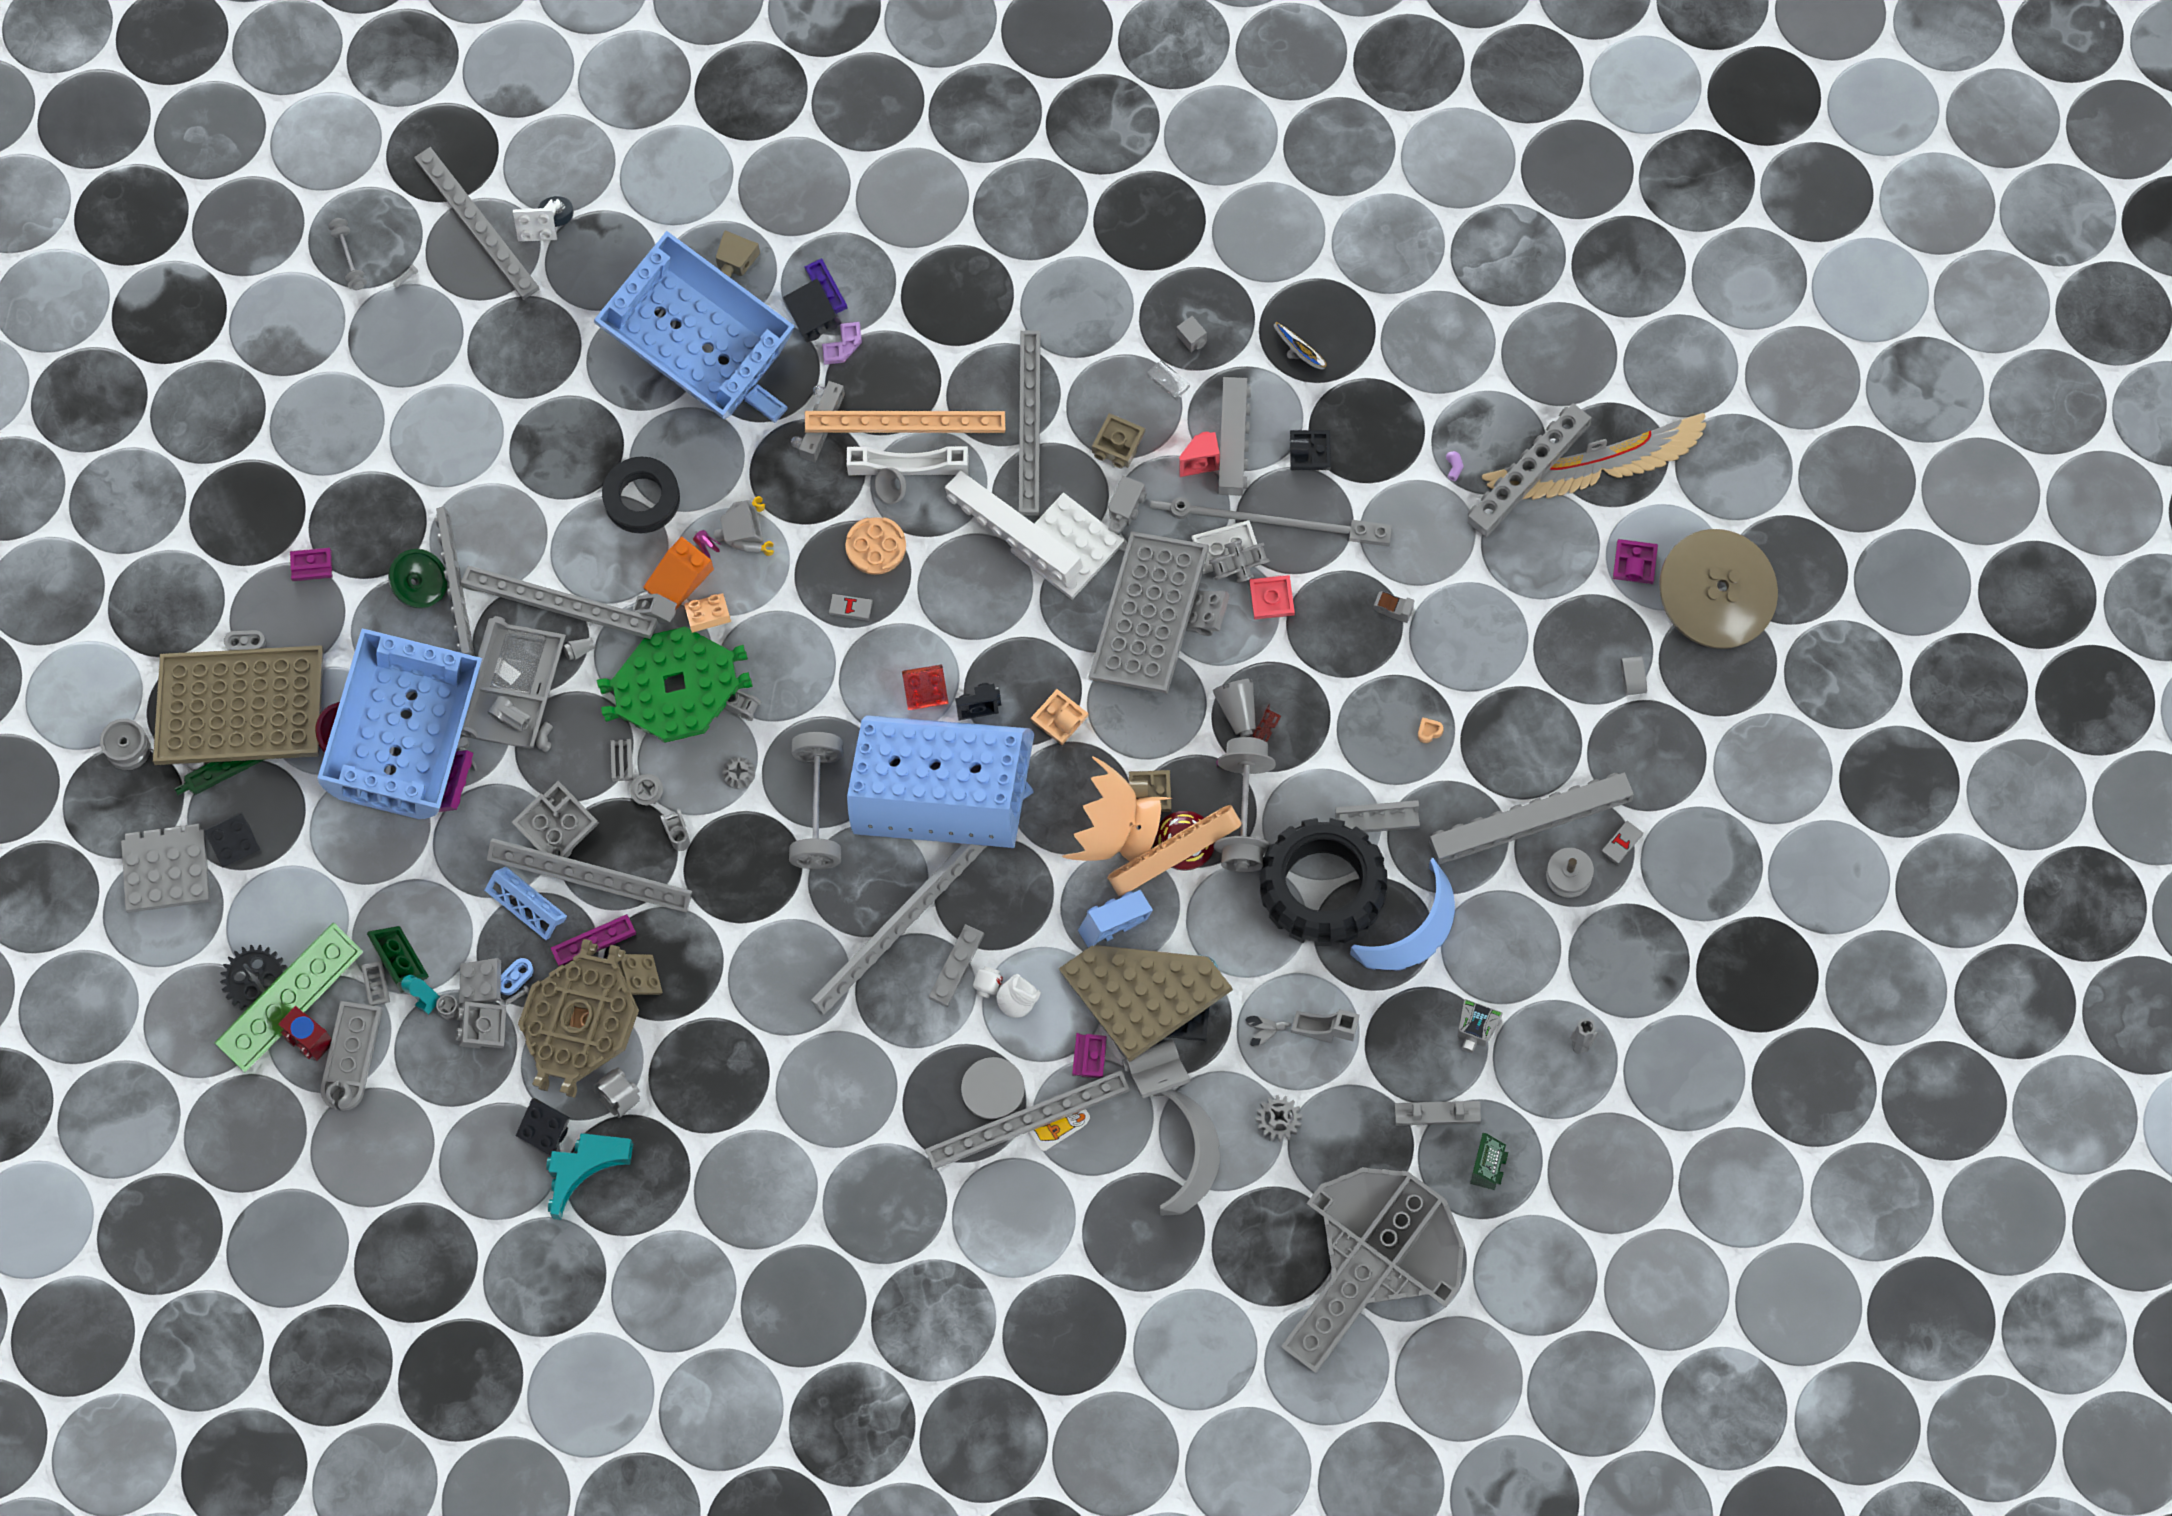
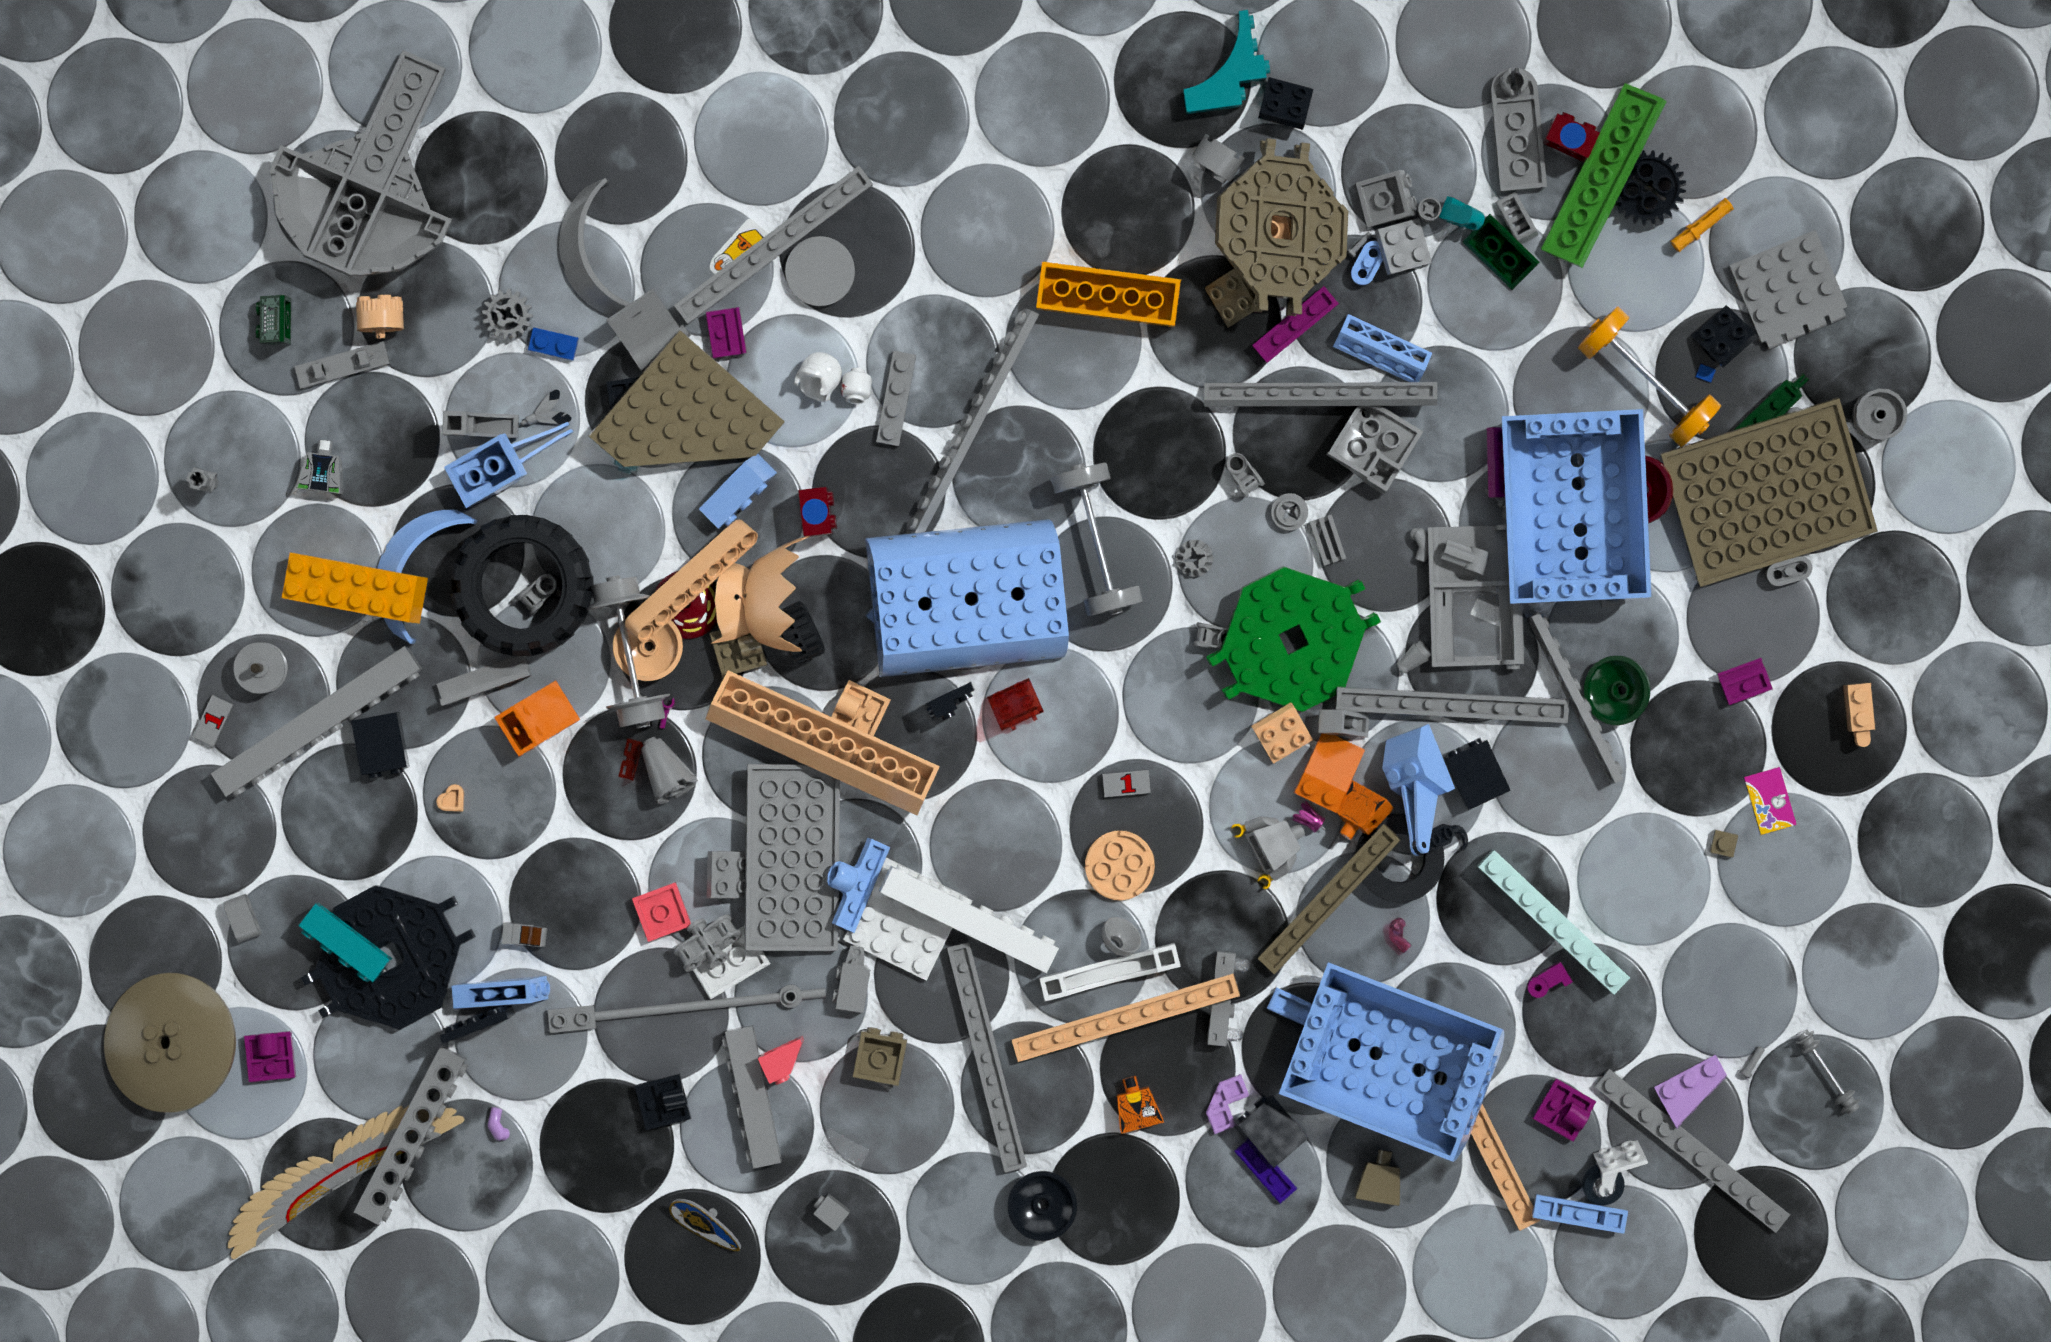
camera: 165 degrees right, 20 degrees up
(219, 938) = (1706, 221): none -> light orange pin
(224, 517) = (1859, 712): none -> light nougat brick
(259, 818) = (1705, 373): none -> blue window
(281, 775) = (1693, 421): none -> light orange axle
(322, 470) = (1770, 800): none -> sticker
(371, 445) = (1724, 843): none -> dark tan plate
(464, 266) = (1688, 1089): none -> lavender wing
(531, 416) = (1553, 921): none -> light aqua brick
(549, 374) = (1540, 983): none -> magenta leg
(556, 544) = (1476, 773): none -> black brick
(568, 274) = (1564, 1109): none -> magenta plate
(581, 193) = (1580, 1213): none -> light blue hinge
(602, 550) = (1419, 776): none -> light blue slope
(631, 230) = (1502, 1171): none -> light nougat plate
(659, 534) = (1362, 810): none -> orange torso
(662, 437) = (1396, 934): none -> clear pink arm
(708, 472) = (1329, 899): none -> dark tan plate
(746, 1002) = (1108, 294): none -> light orange brick
(916, 354) = (1137, 1107): none -> torso
(1012, 287) = (1038, 1222): none -> black dish
(1051, 882) = (816, 511): none -> dark red brick
(1086, 788) = (803, 634): none -> black tyre
(1098, 693) = (822, 742): none -> light nougat brick
(1100, 578) = (856, 883): none -> light blue plate
(1224, 793) = (654, 663): none -> light nougat dish
(1245, 1085) = (553, 343): none -> blue plate
(1313, 875) = (538, 593): none -> light grey piece
(1322, 987) = (494, 466): none -> light blue slope
(1339, 774) = (537, 718): none -> orange slope
(1392, 1142) = (379, 314): none -> light nougat piece
(1424, 563) = (500, 992): none -> light blue slope
(1450, 537) = (476, 1023): none -> black plate
(1470, 913) = (354, 588): none -> light orange brick
(1480, 786) = (380, 744): none -> black brick
(1510, 584) = (423, 942): none -> black plate
(1548, 630) = (345, 942): none -> teal brick

